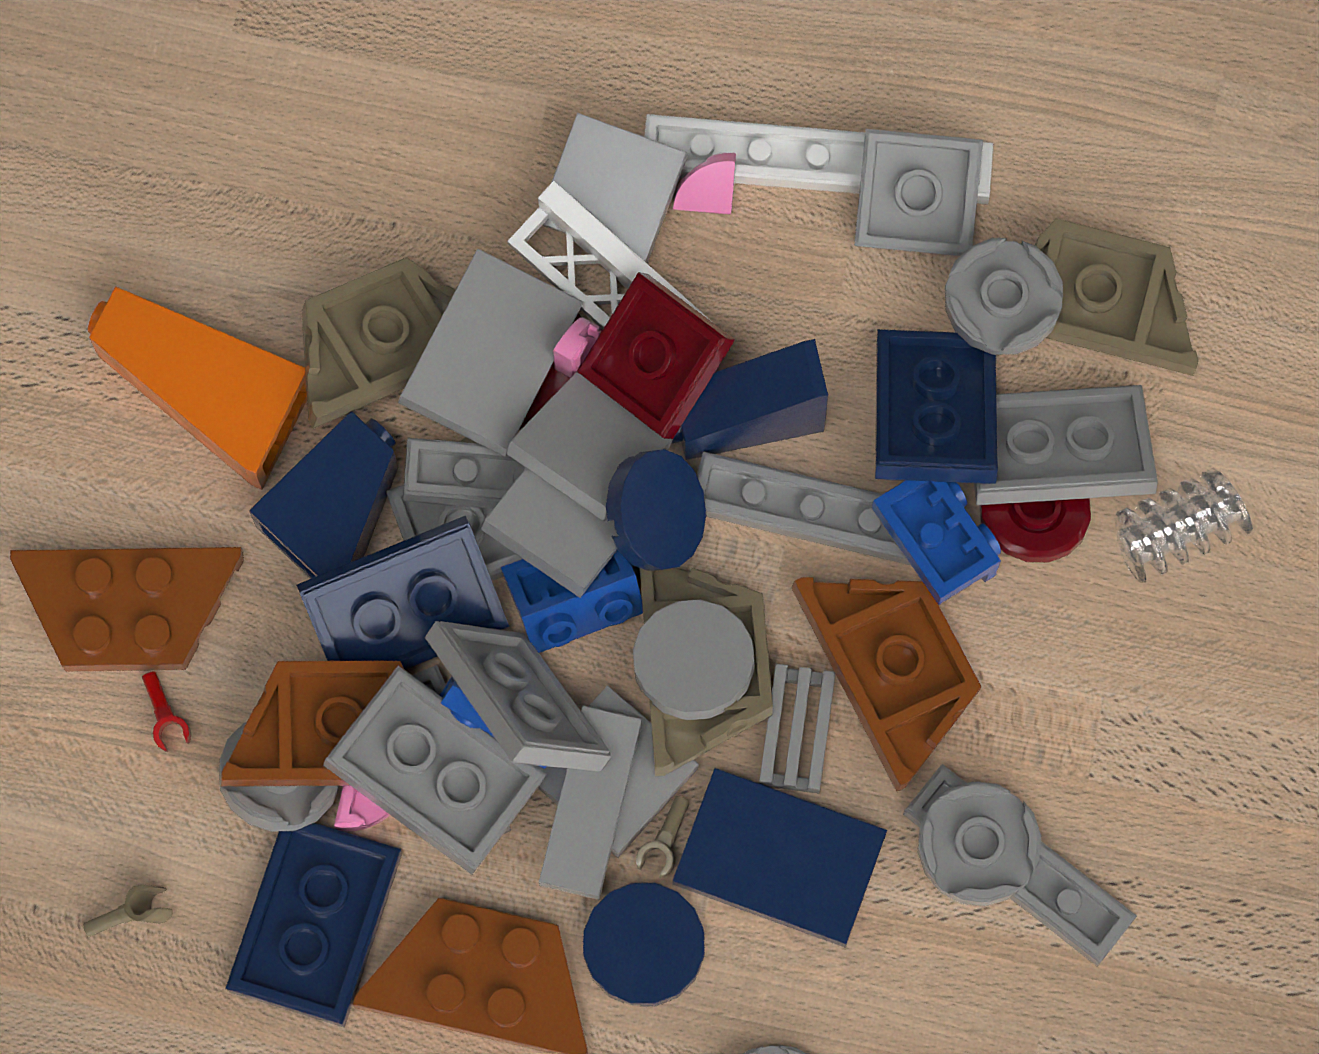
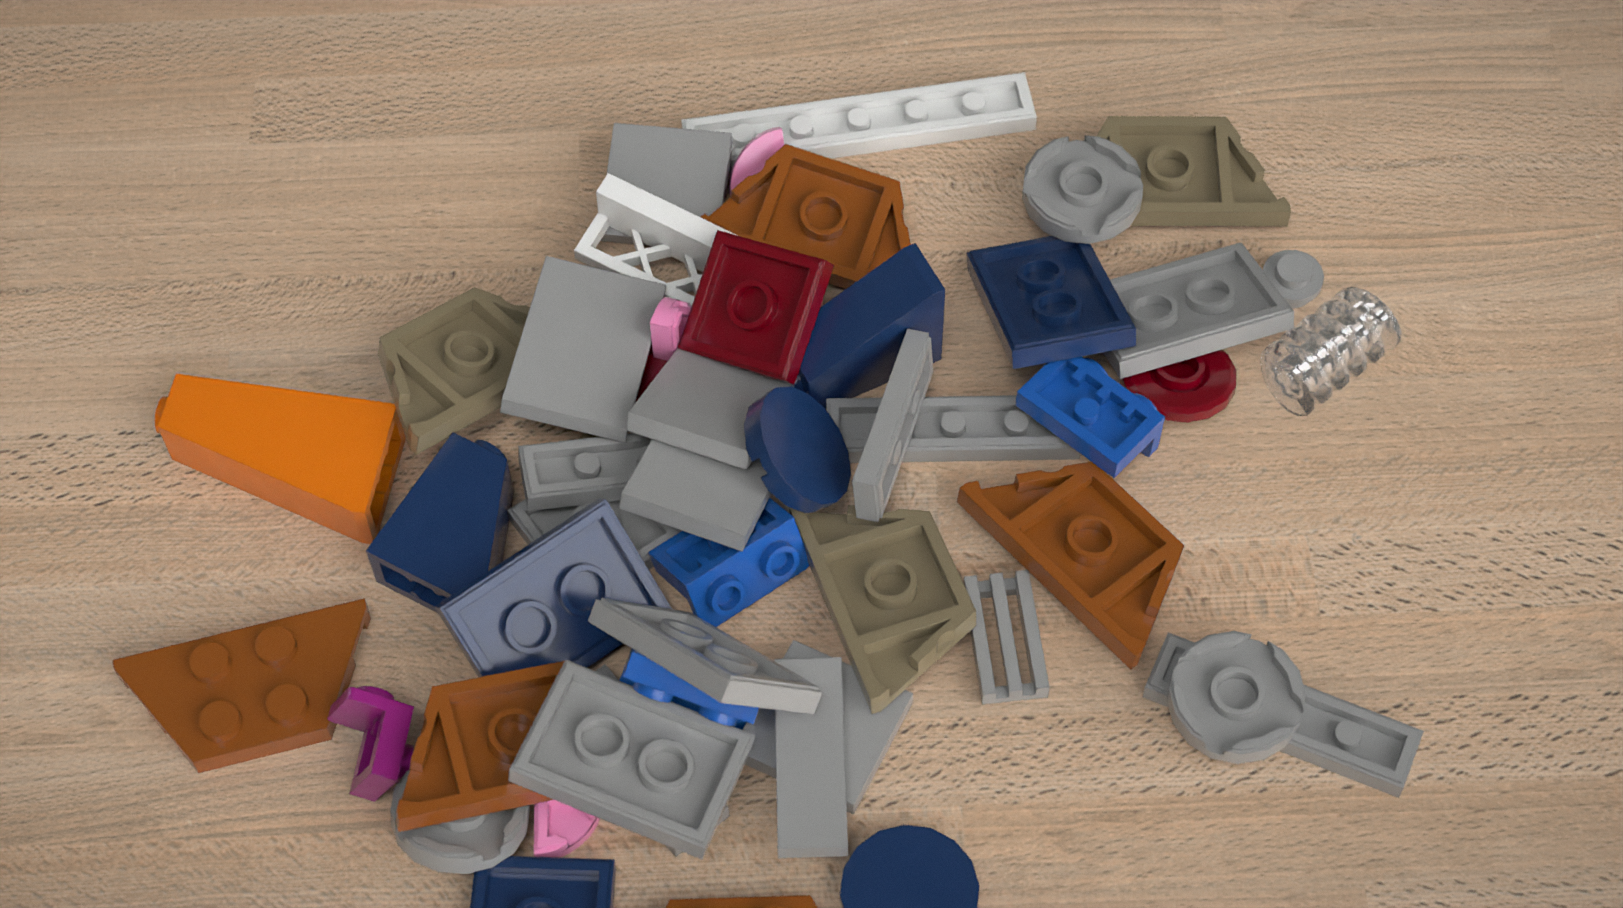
camera: 15 degrees left, 15 degrees down
(163, 711) = (316, 785): red hand -> none
(226, 698) = (383, 749): none -> magenta bracket
(666, 836) = (899, 778): dark tan hand -> none
(693, 659) = (879, 584): light grey tile -> none
(745, 264) = (819, 211): none -> dark orange wing
(750, 505) = (893, 426): none -> light grey tile
(779, 857) = (1028, 769): dark blue tile -> none
(918, 192) = (967, 124): light grey tile -> none
(1178, 434) = (1295, 276): none -> light grey plate

